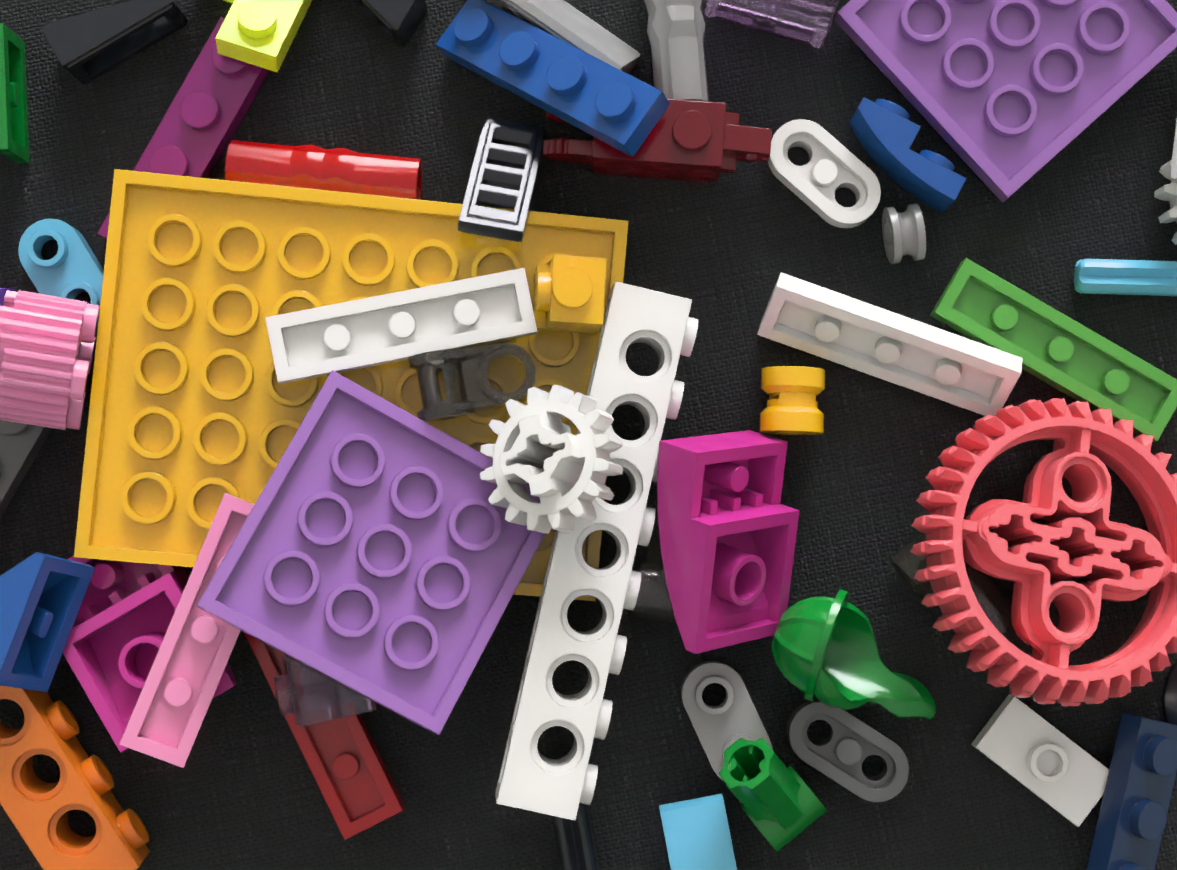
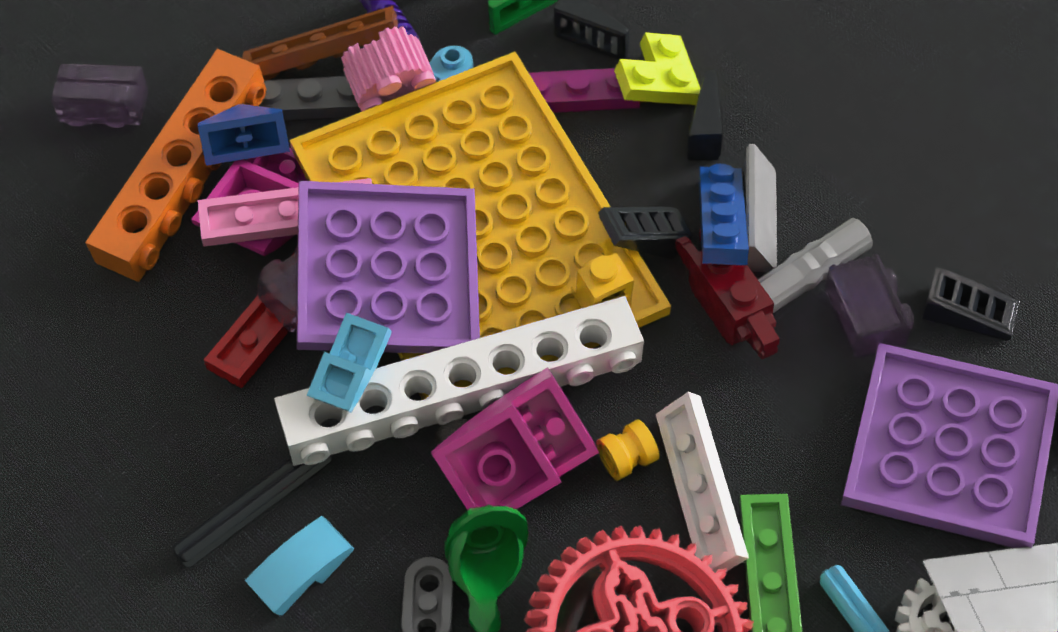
camera: 55 degrees right, 30 degrees down
(324, 169) = (590, 152): red axle -> none
(400, 325) = (524, 216): white plate -> none
(466, 380) = (513, 262): clear smoke piece -> none
(512, 687) = (350, 364): none -> medium azure slope
(569, 476) = (496, 309): white gear -> none
(721, 724) = (404, 529): light grey plate -> none
(770, 792) = (369, 575): green piece -> none
(828, 169) = (779, 396): white plate -> none
(887, 136) = (827, 420): blue slope -> none
(904, 233) = (776, 454): light grey bush -> none

